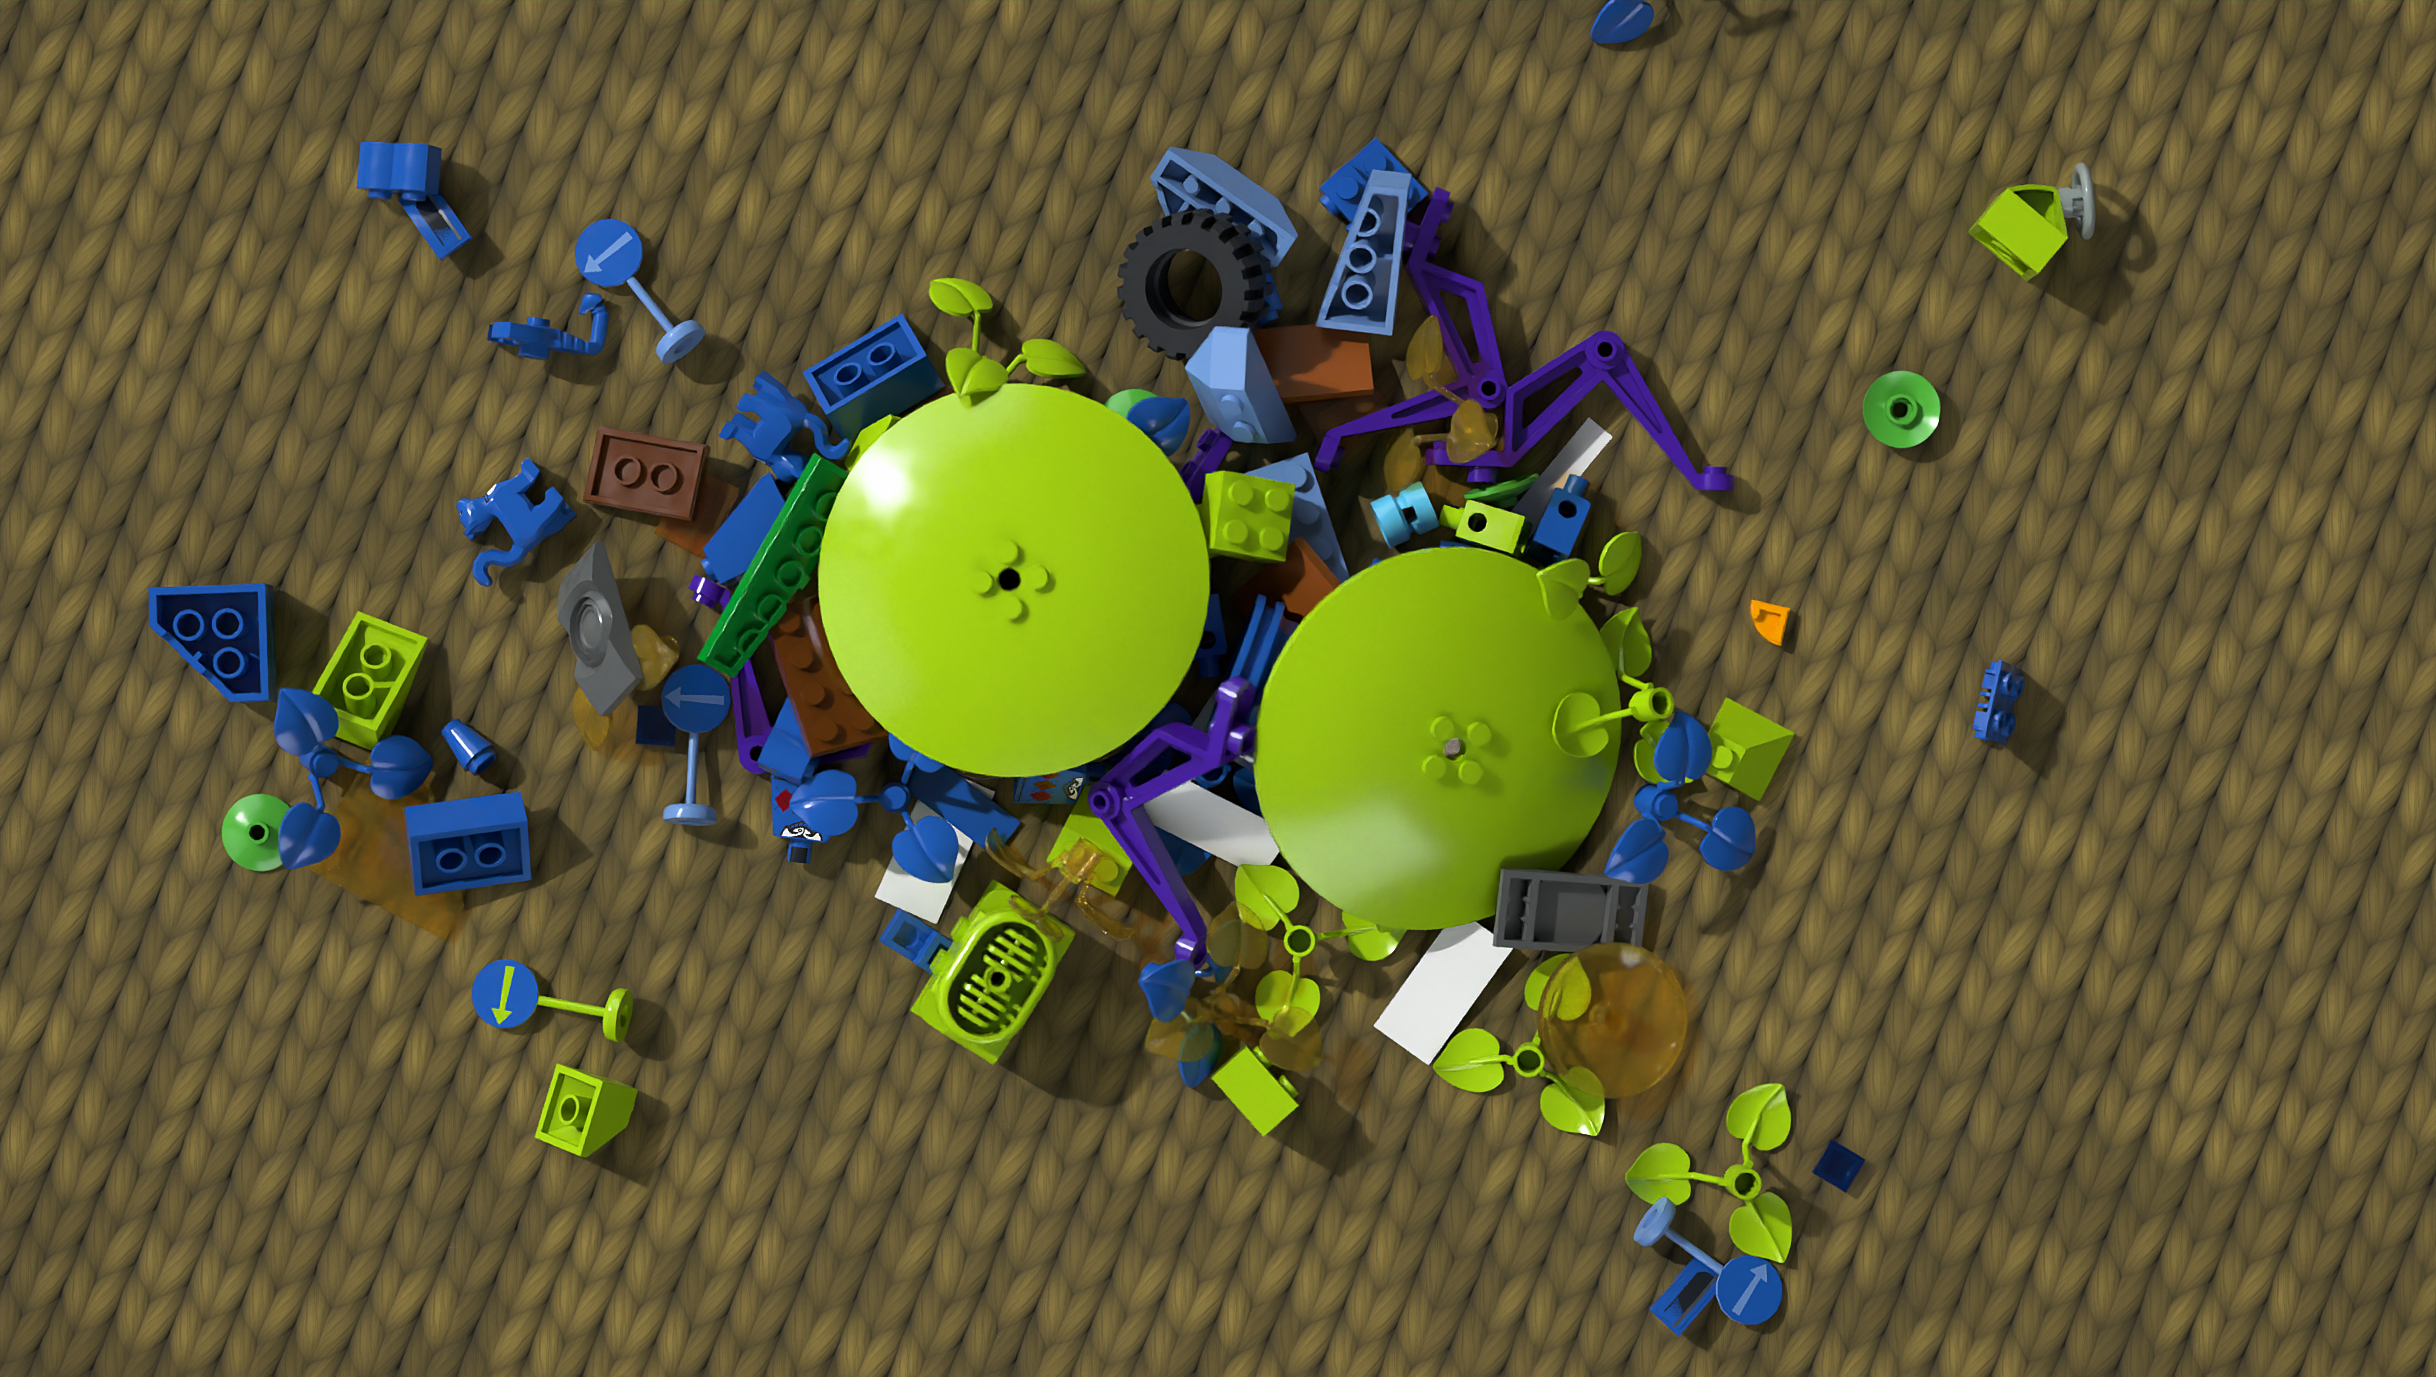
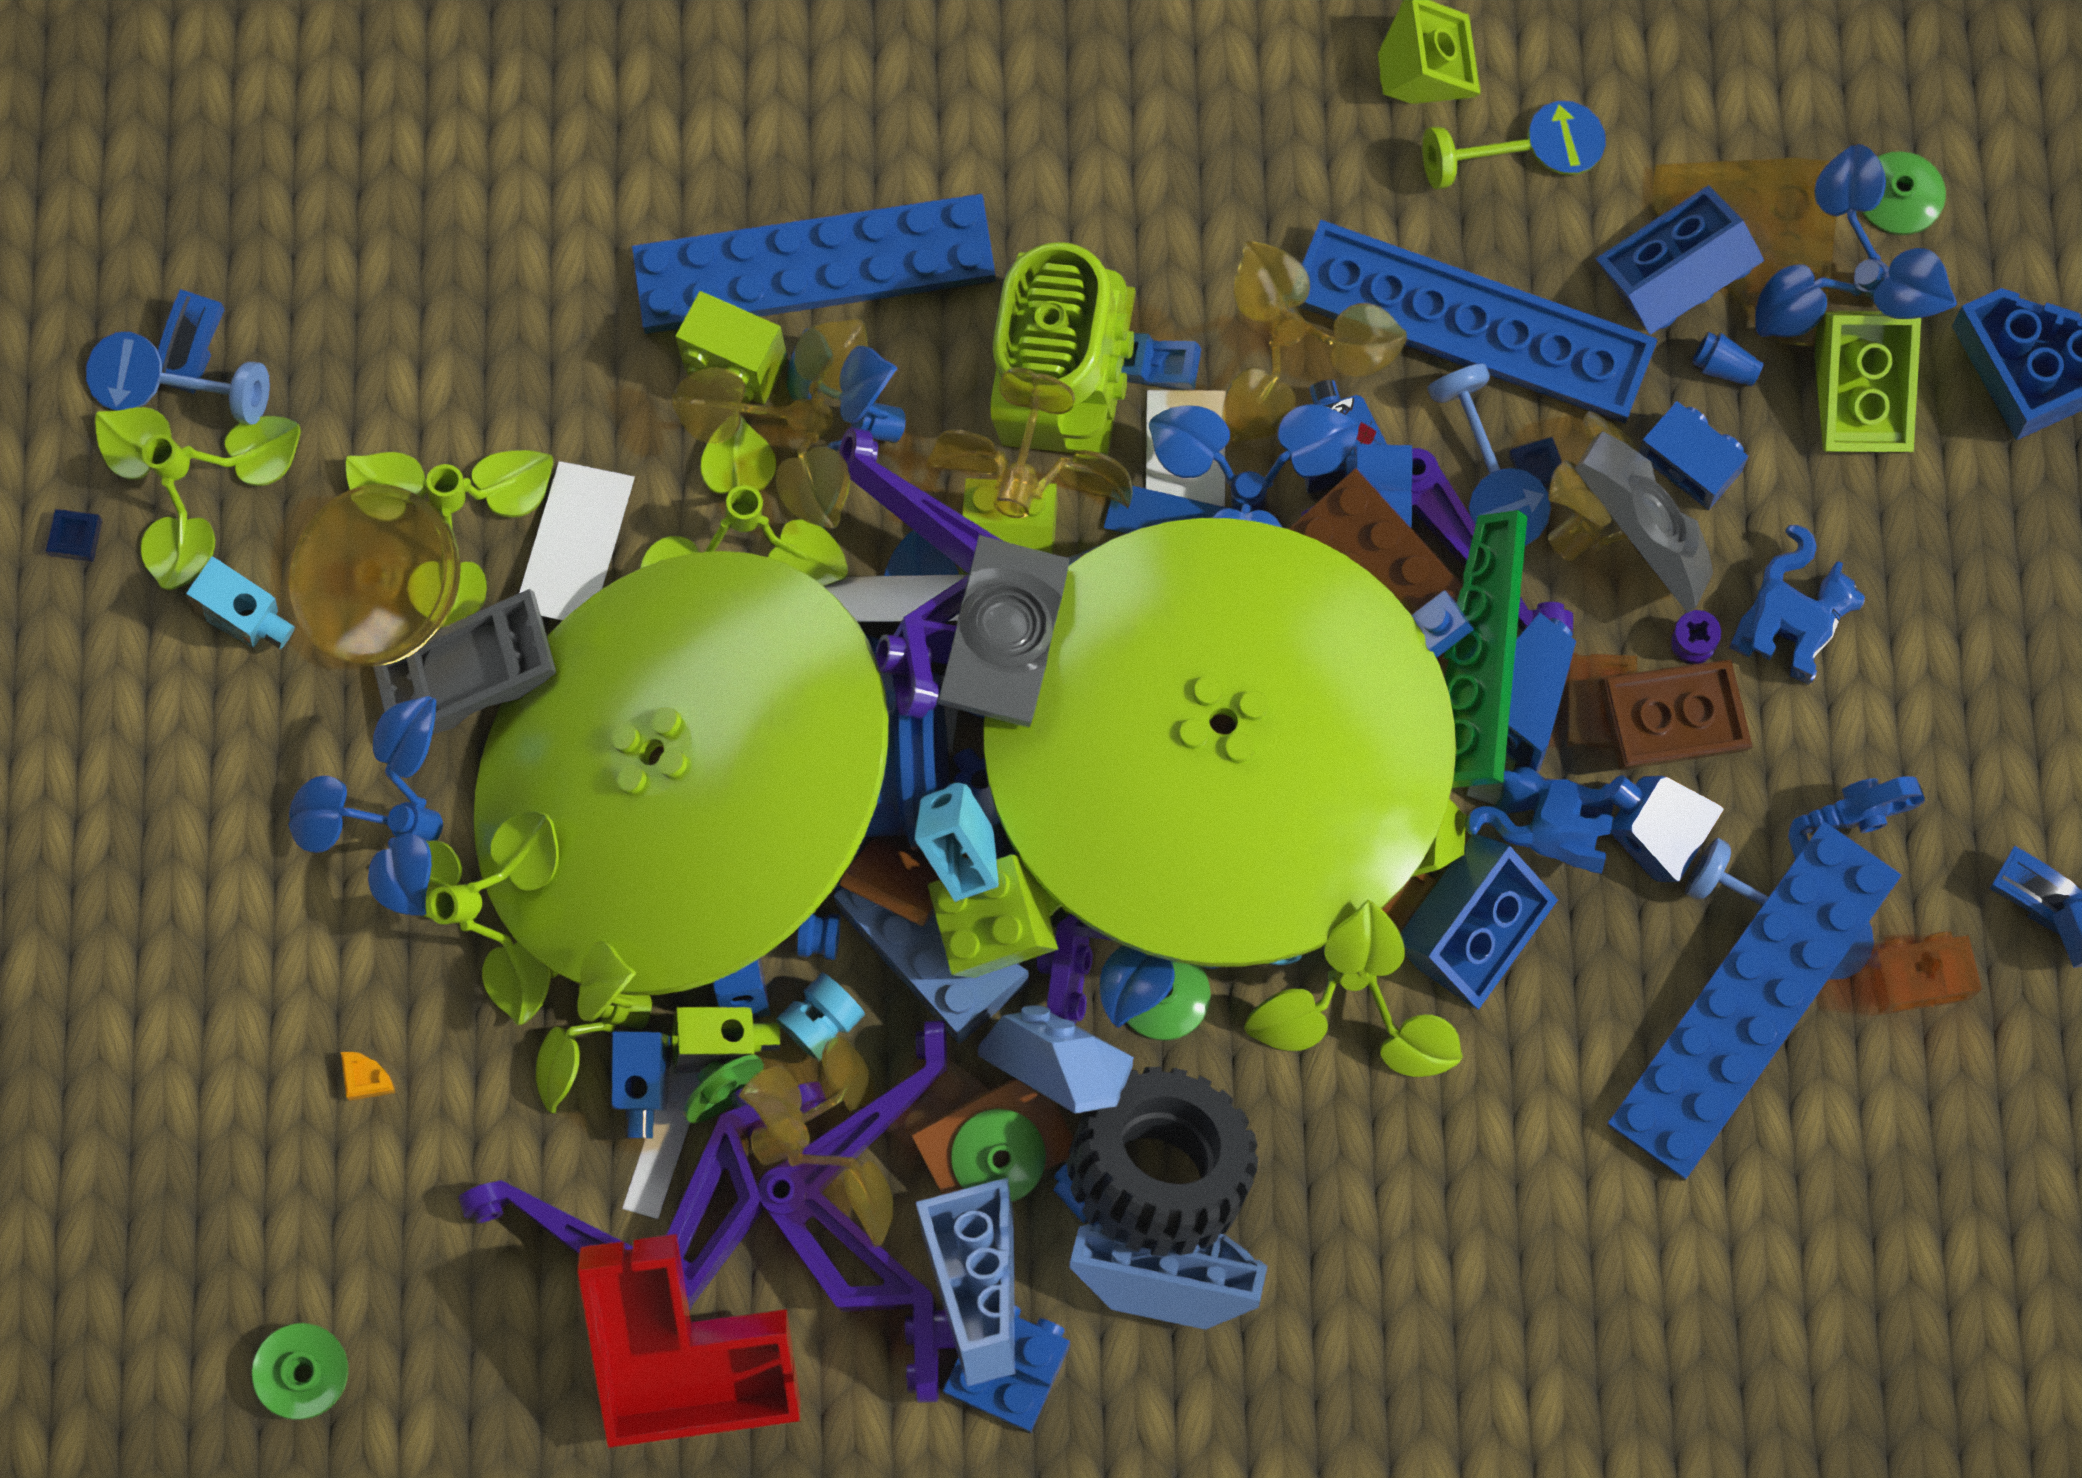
camera: 160 degrees right, 15 degrees down
(532, 678) = (1694, 454): none -> blue brick
(537, 179) = (1902, 989): none -> clear orange brick
(609, 534) = (1691, 646): none -> dark purple wheel
(654, 866) = (1481, 321): none -> blue plate
(691, 227) = (1754, 1000): none -> blue plate
(699, 390) = (1660, 823): none -> torso
(801, 603) = (1442, 623): none -> plate
(805, 930) = (1268, 291): none -> clear yellow plant
(1144, 726) = (1004, 631): none -> dark grey slope
(1157, 1146) = (818, 261): none -> blue plate
(1250, 575) = (955, 824): none -> medium azure torso
(1309, 364) = (997, 1131): none -> bright green dish
(1622, 280) = (674, 1375): none -> red piece
(1741, 1051) = (221, 597): none -> medium azure torso
(1745, 749) = (340, 925): lime slope -> none
(2006, 686) = (71, 1069): blue hinge -> none

